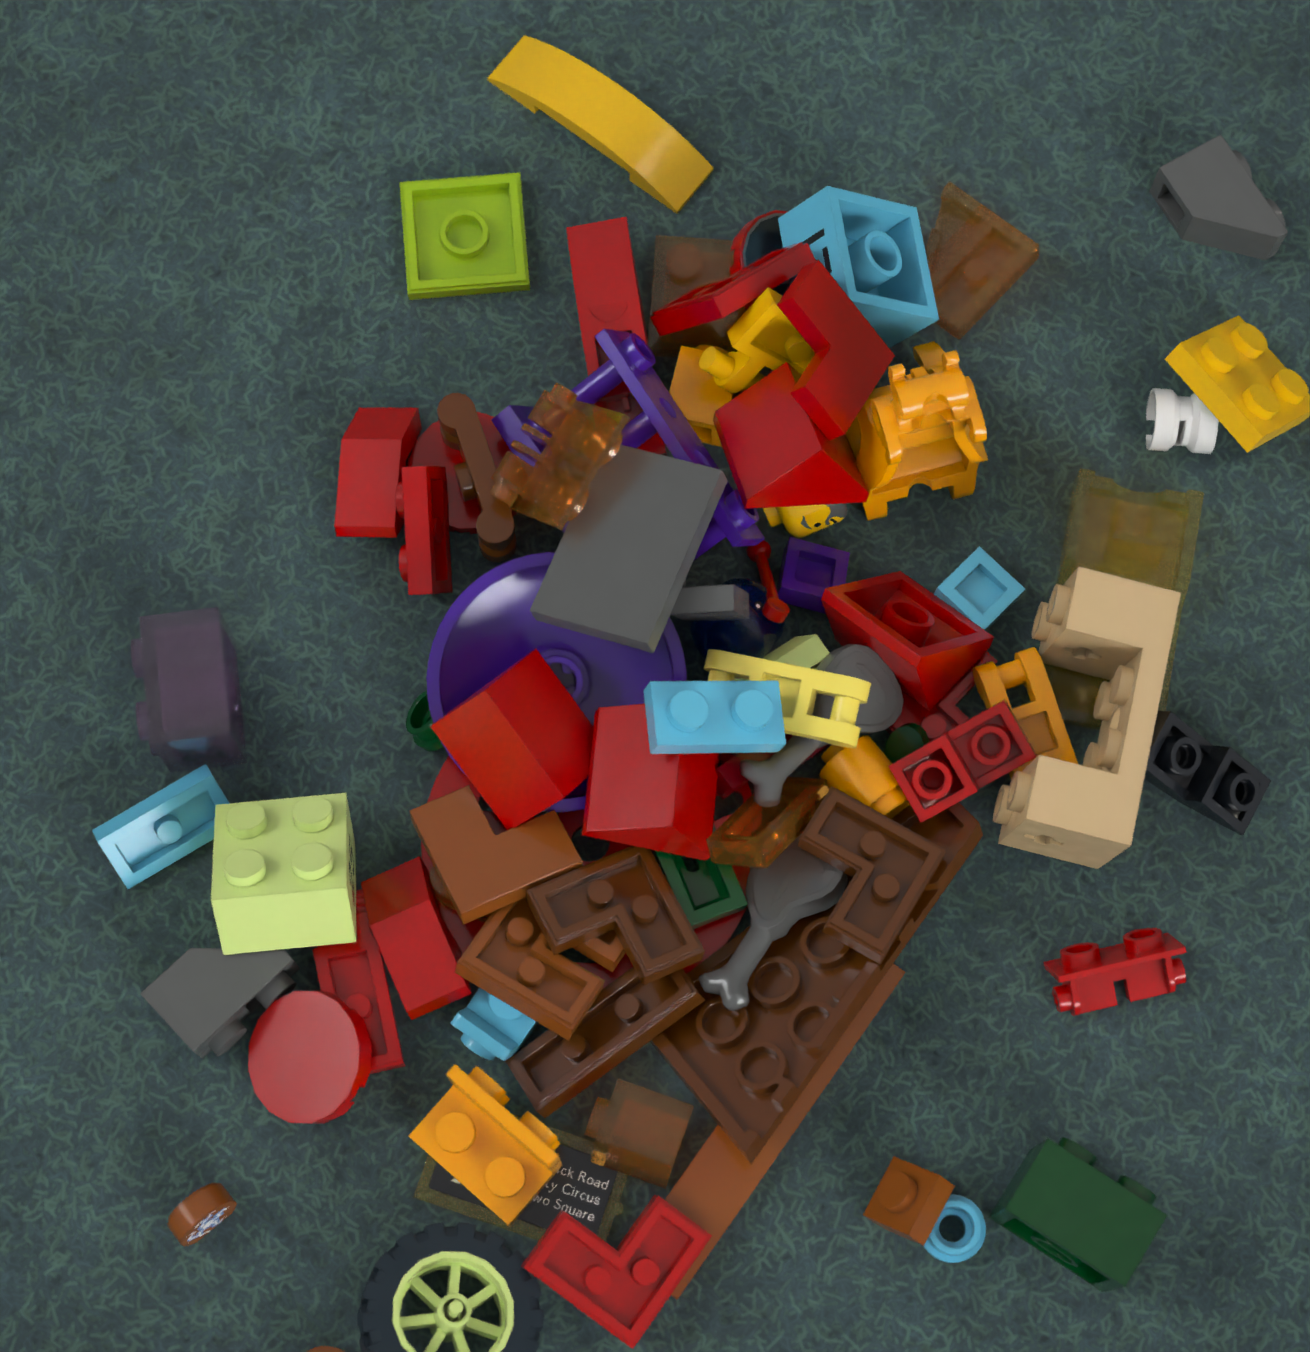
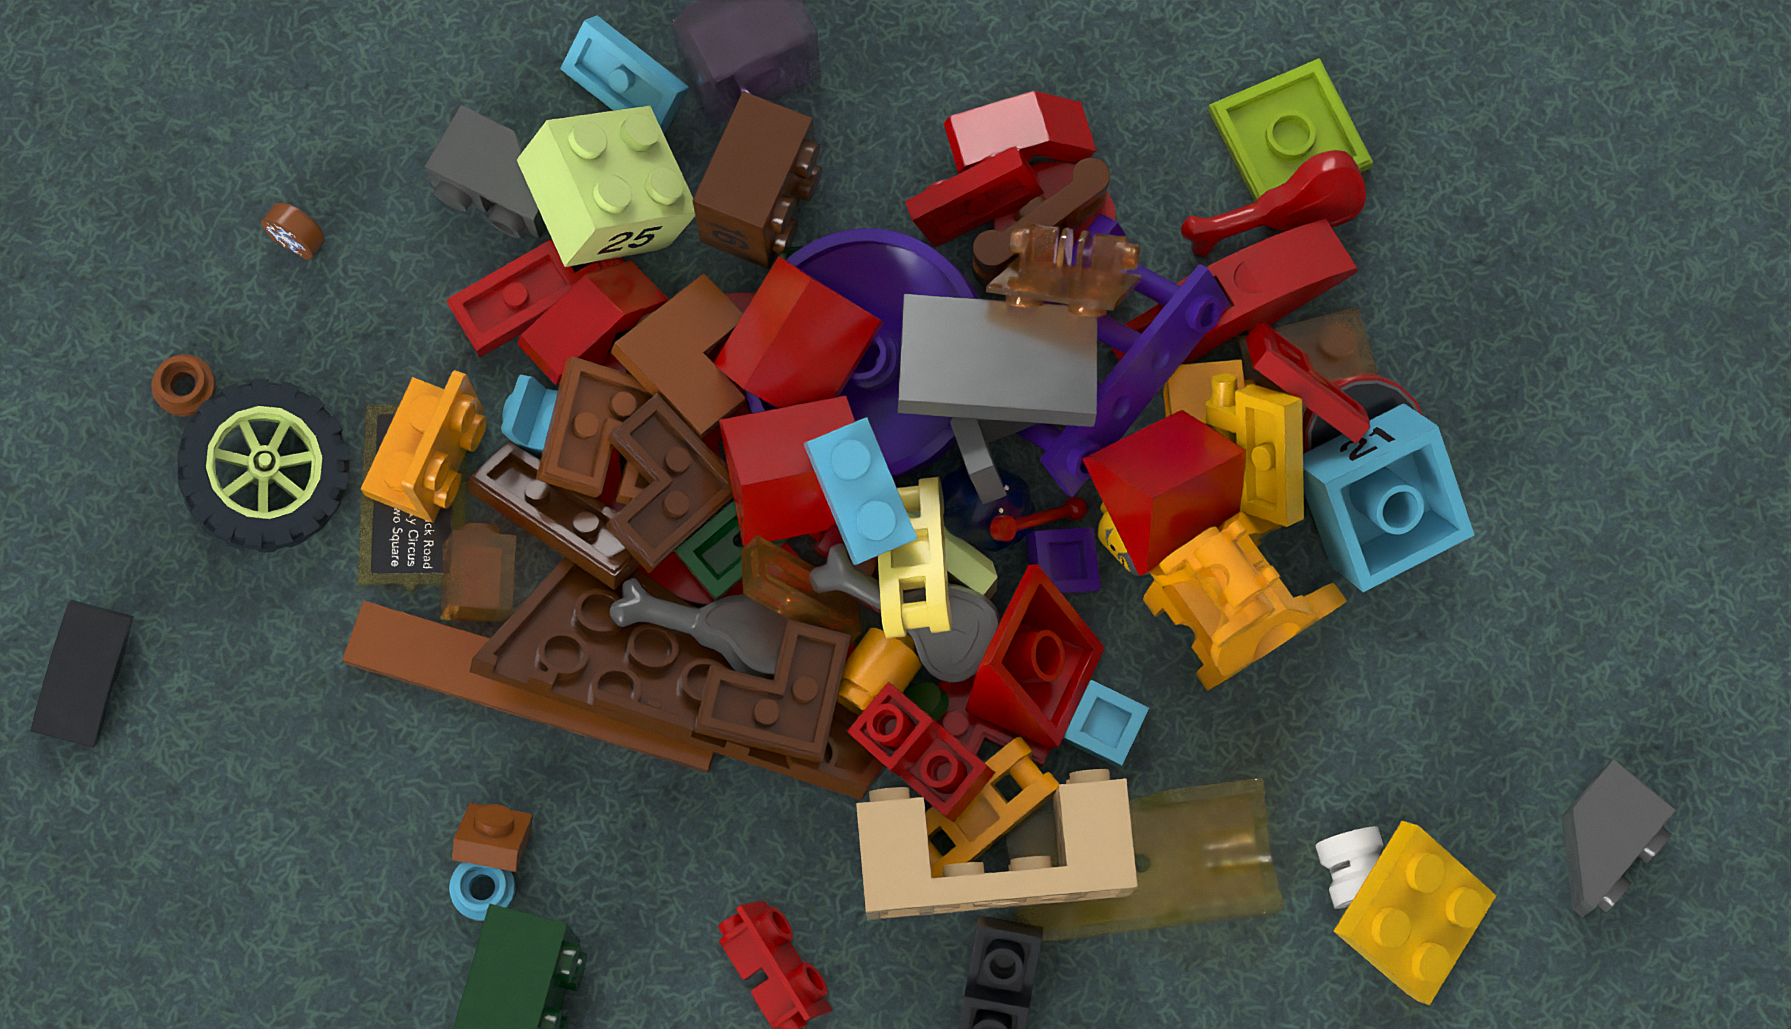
camera: 75 degrees right, 0 degrees up
(309, 1057) = (454, 268): red tile -> none
(336, 725) = (757, 181): none -> reddish brown brick
(540, 231) = (1319, 189): none -> red piece
(605, 118) = (1458, 221): yellow slope -> none
(625, 1284) = (334, 600): red tile -> none
(846, 346) = (1273, 497): red tile -> none
(973, 259) = (1446, 611): clear orange wing -> none

